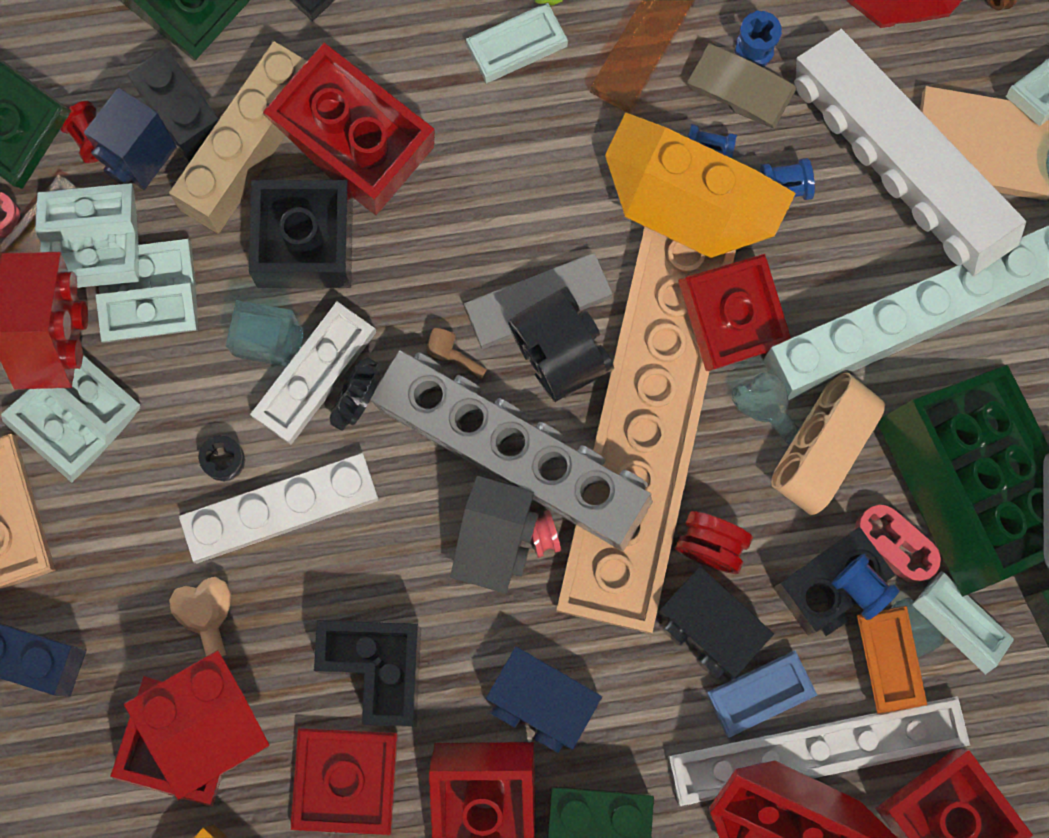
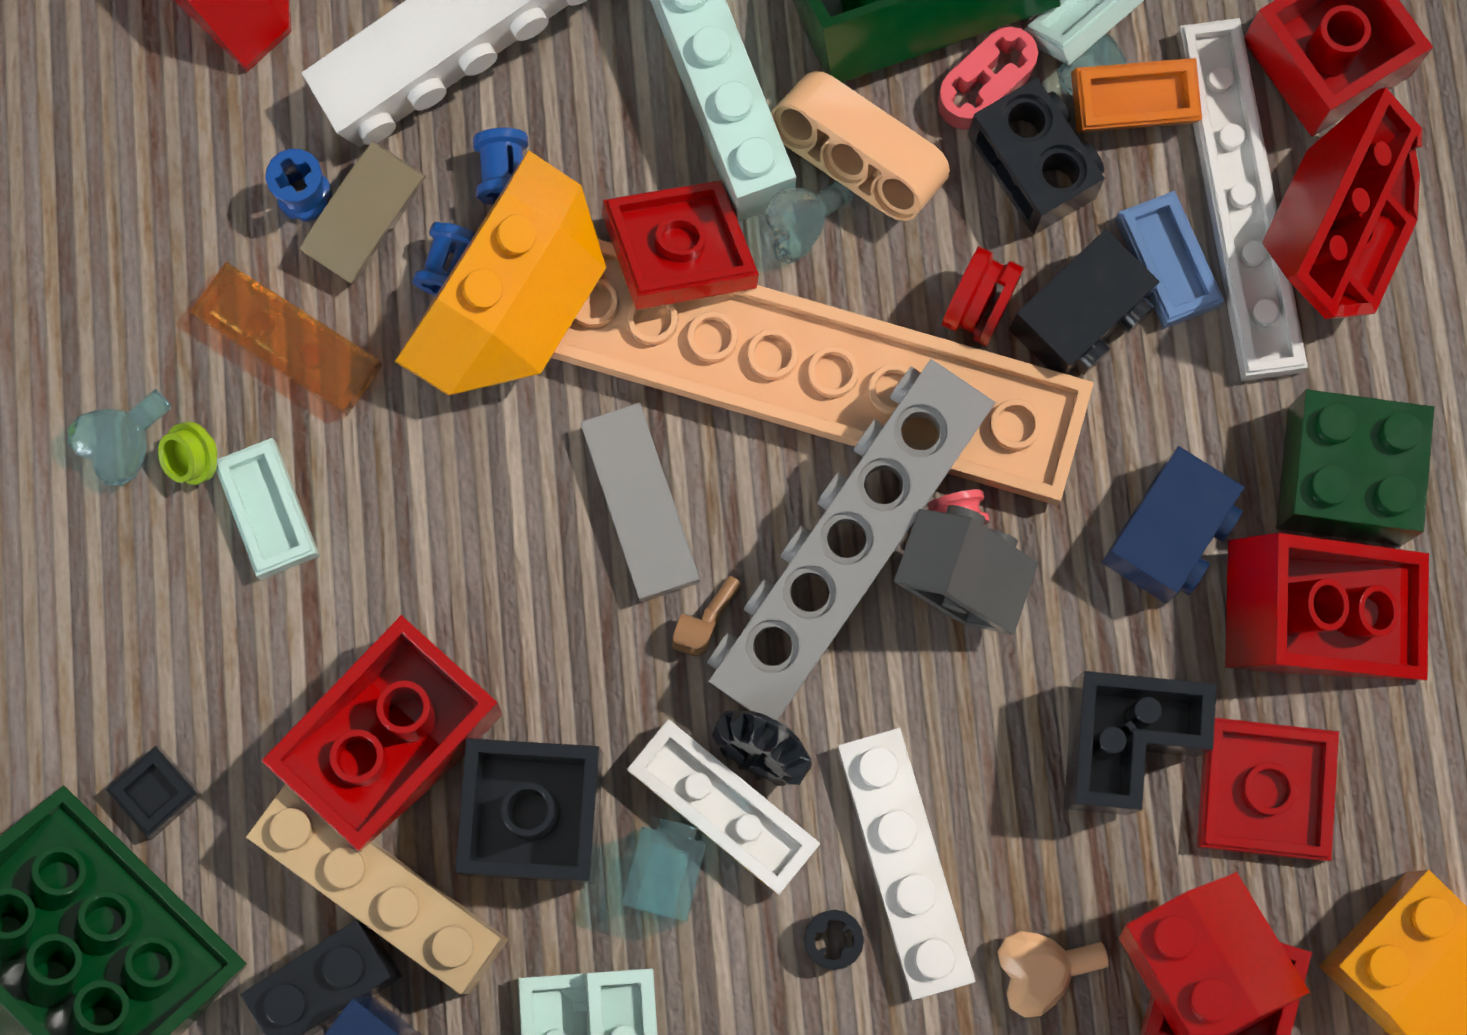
camera: 85 degrees left, 0 degrees up
(560, 344) = (713, 468): black brick -> none
(865, 587) = (1056, 109): blue bush -> none

